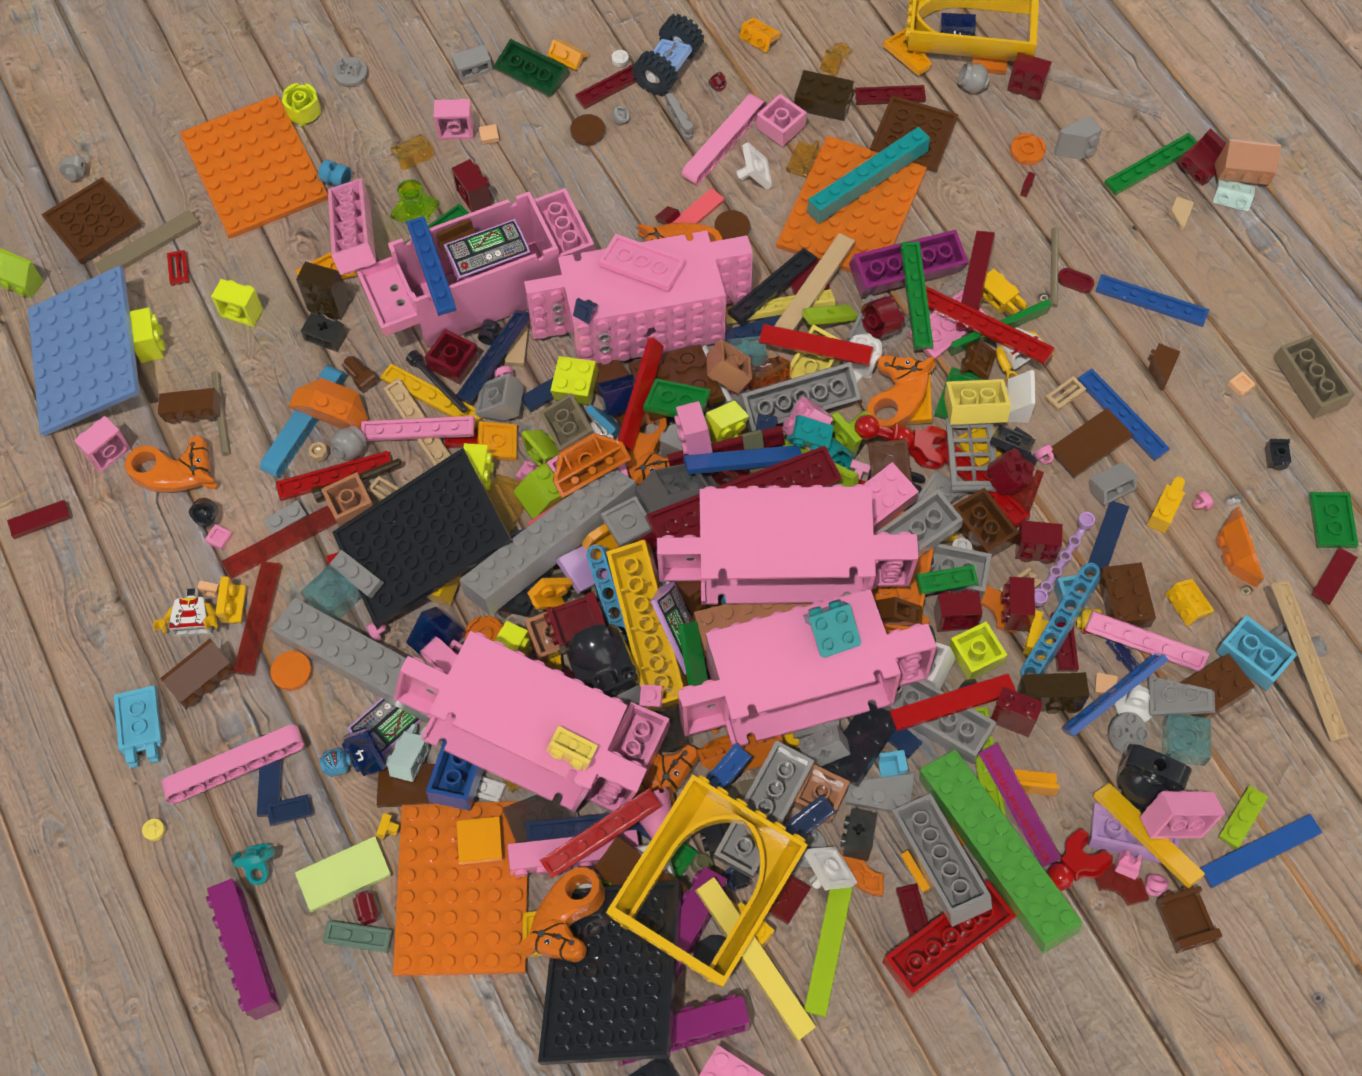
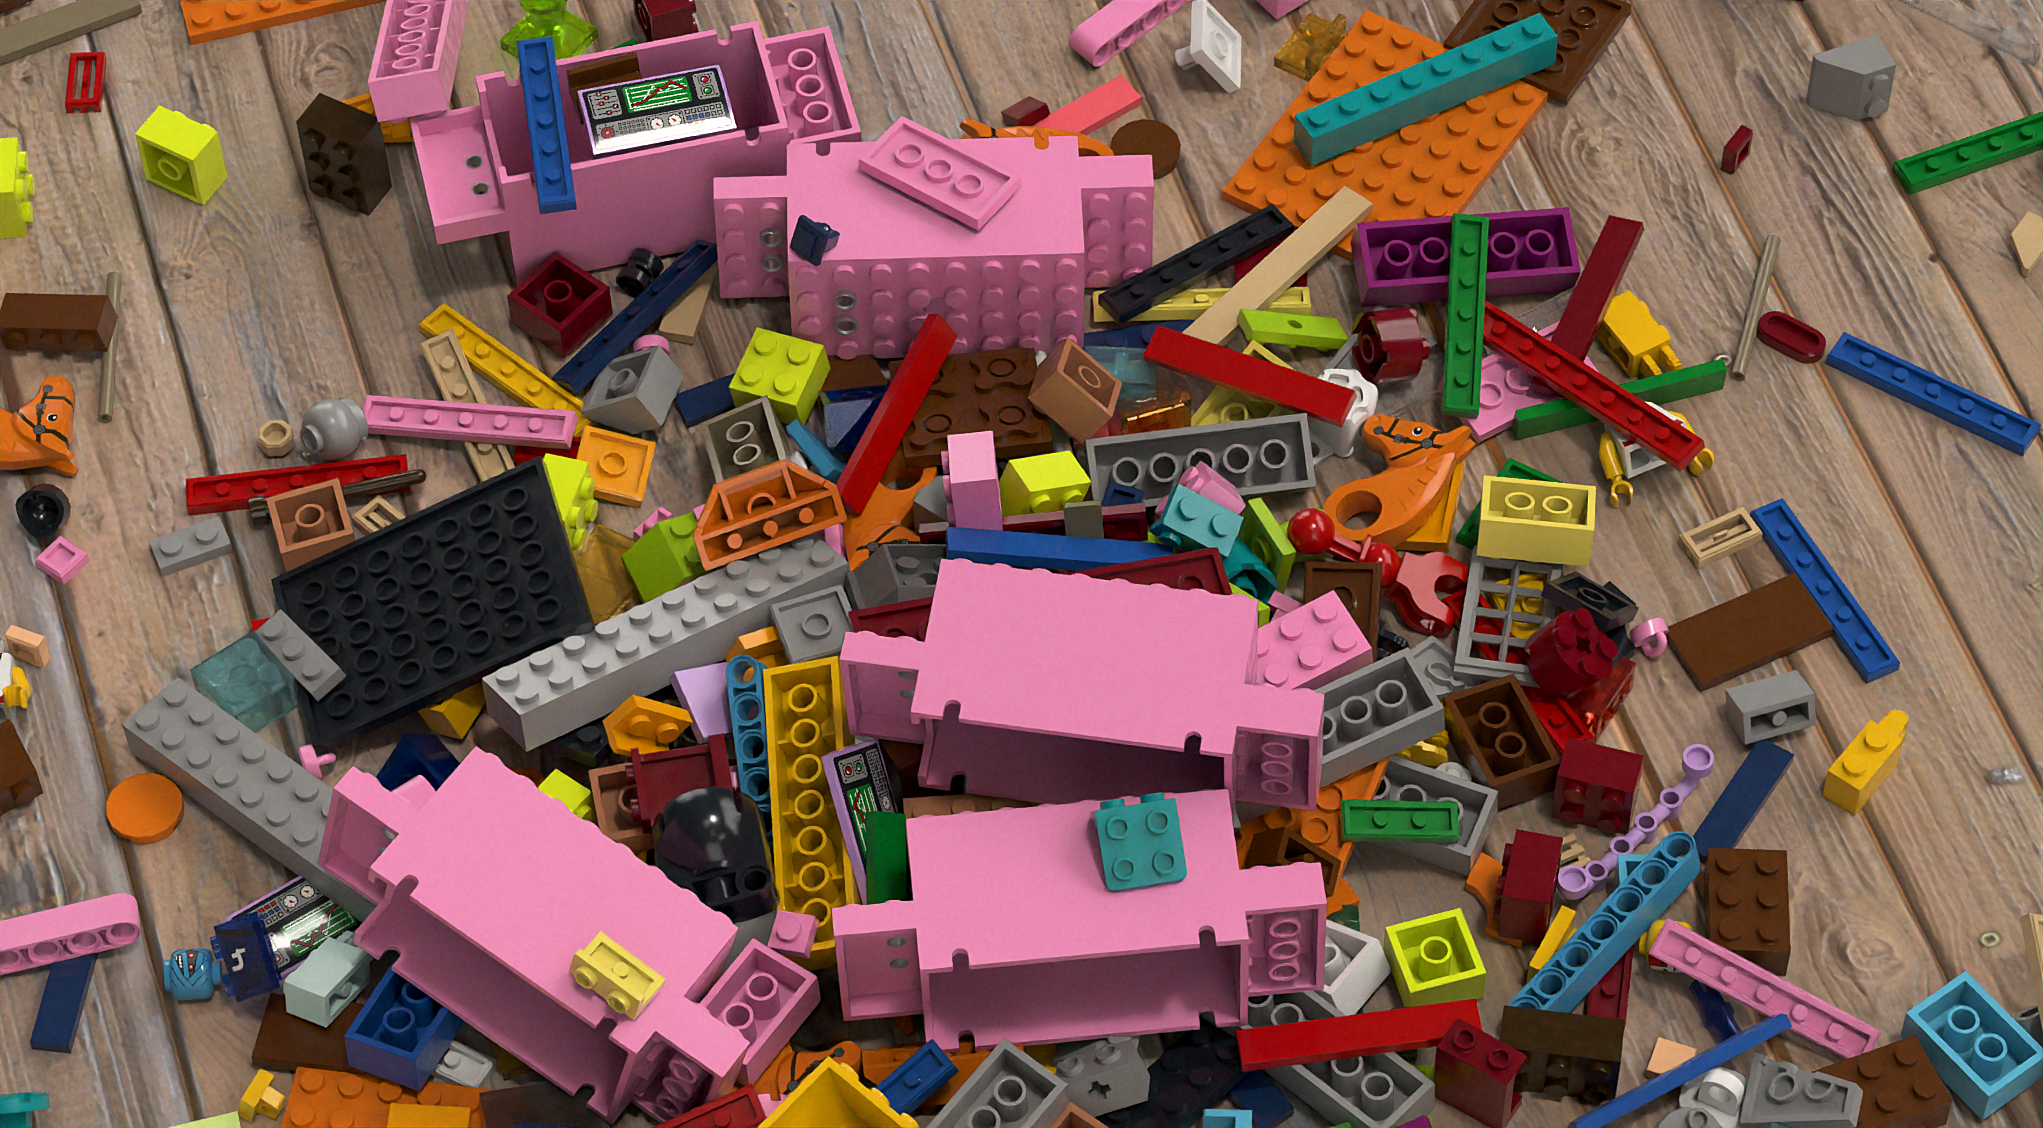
camera: 10 degrees right, 10 degrees down
(230, 601) = (59, 671): yellow bracket -> none
(258, 618) = (103, 710): clear red tile -> none
(279, 542) = (171, 584): clear red tile -> none
(288, 810) = (89, 1042): dark blue tile -> none
(295, 432) = (259, 381): dark azure beam -> none
(324, 332) = (331, 230): pearl dark grey brick -> none
(329, 403) = (314, 353): orange wedge -> none
(361, 376) = (384, 317): reddish brown piece -> none
(415, 359) = (492, 304): black piece -> none
(539, 446) = (684, 480): lime slope -> none
(668, 395) = (941, 416): green tile -> none
(957, 610) = (1410, 882): dark red brick -> none
(978, 359) = (1564, 450): reddish brown bracket -> none
(1021, 396) = (1624, 529): white slope -> none
(1027, 149) = (1755, 87): orange tile -> none
(1162, 364) = (1924, 508): reddish brown slope -> none
(1189, 601) = (1869, 938): yellow bracket -> none
(1203, 501) = (1942, 765): bright pink tile -> none
(1239, 550) = (1987, 860): orange wedge -> none

